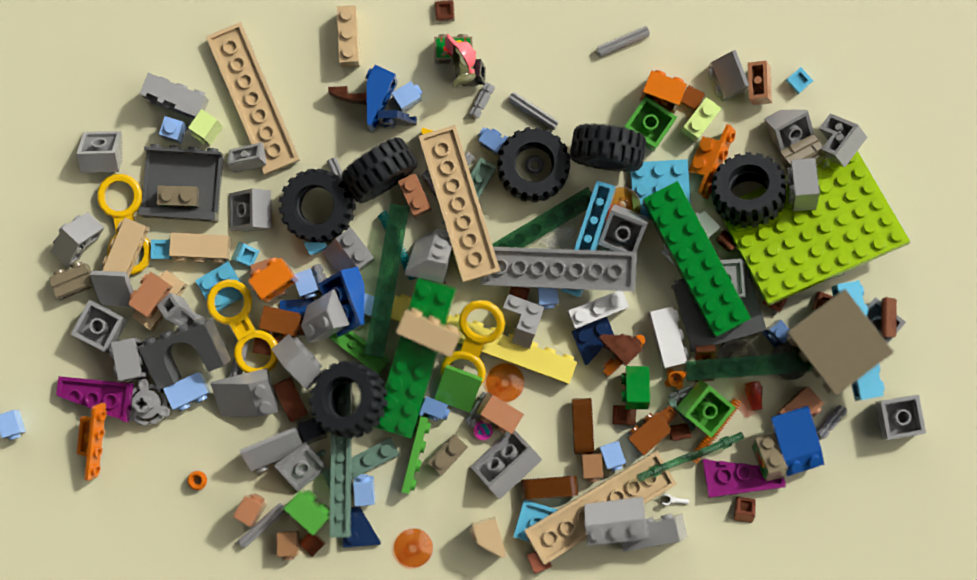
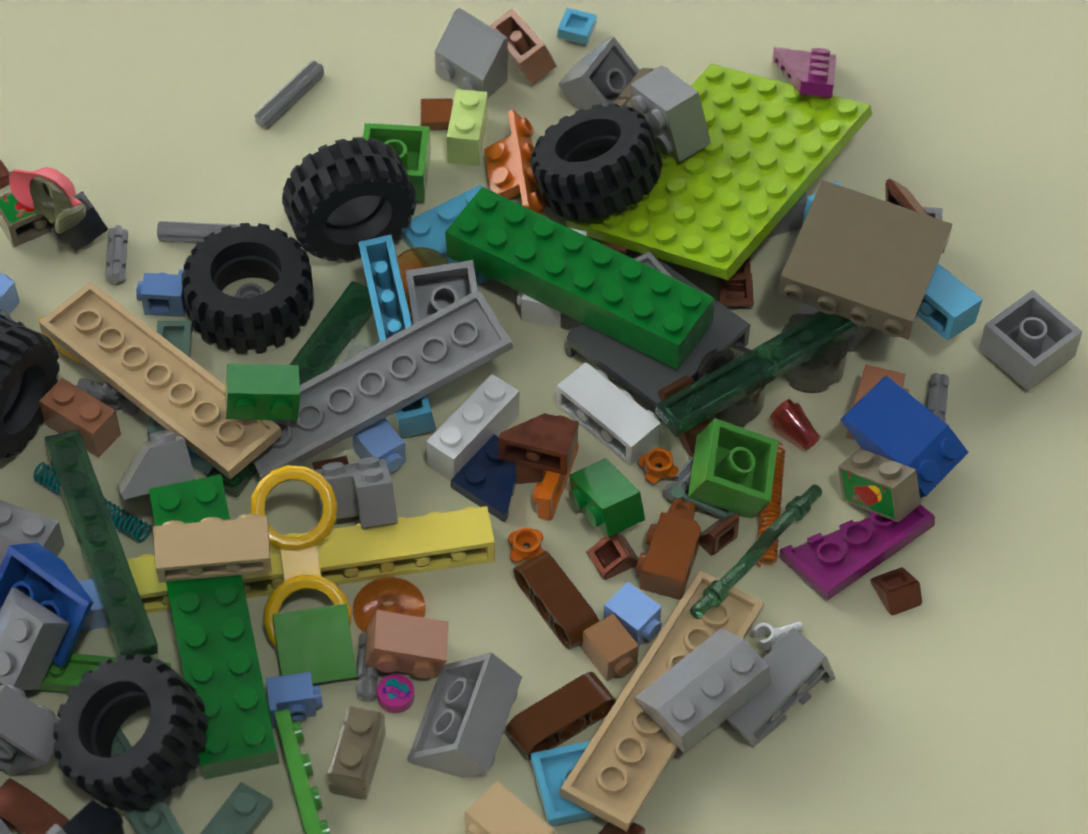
camera: 30 degrees left, 30 degrees down
(500, 250) = (262, 392): none -> green brick
(581, 388) = (523, 537): none -> orange plate
(664, 90) = (387, 101): orange brick -> none
(776, 332) = (768, 321): medium blue brick -> none
(843, 139) = (685, 48): light grey brick -> none
(899, 189) = (809, 71): none -> wing

